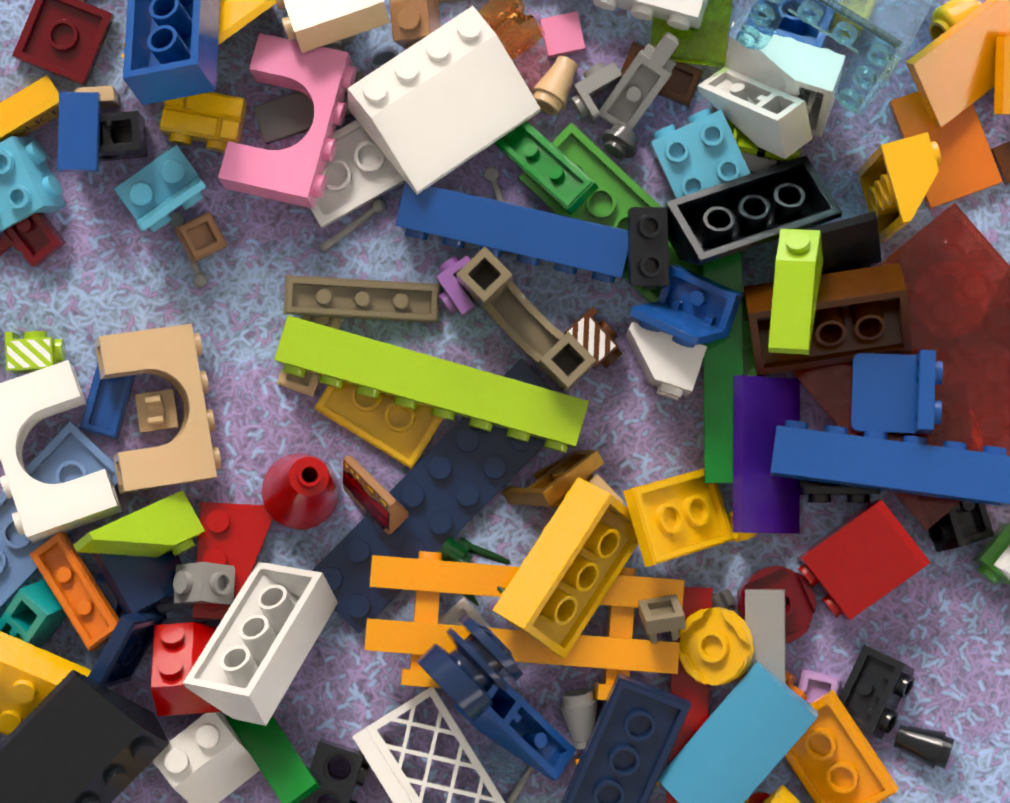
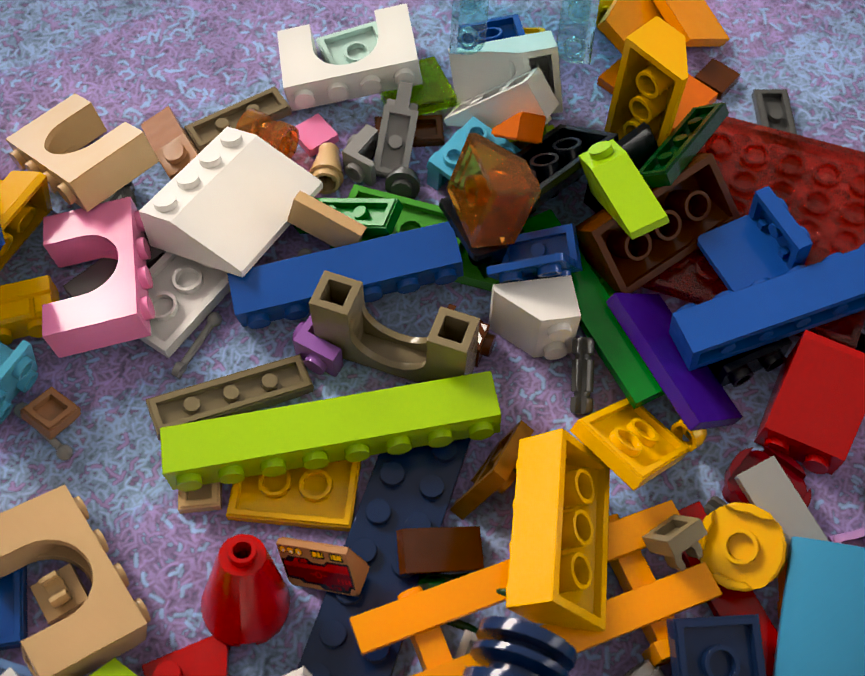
camera: 25 degrees left, 25 degrees down
(473, 526) = (439, 550): none -> reddish brown tile
(518, 171) = (324, 221): none -> tan tile
(668, 244) = (492, 192): none -> clear orange slope
(677, 430) = (582, 375): none -> dark grey axle
(752, 159) = (522, 127): none -> orange slope
(895, 256) = (683, 144): none -> dark green tile

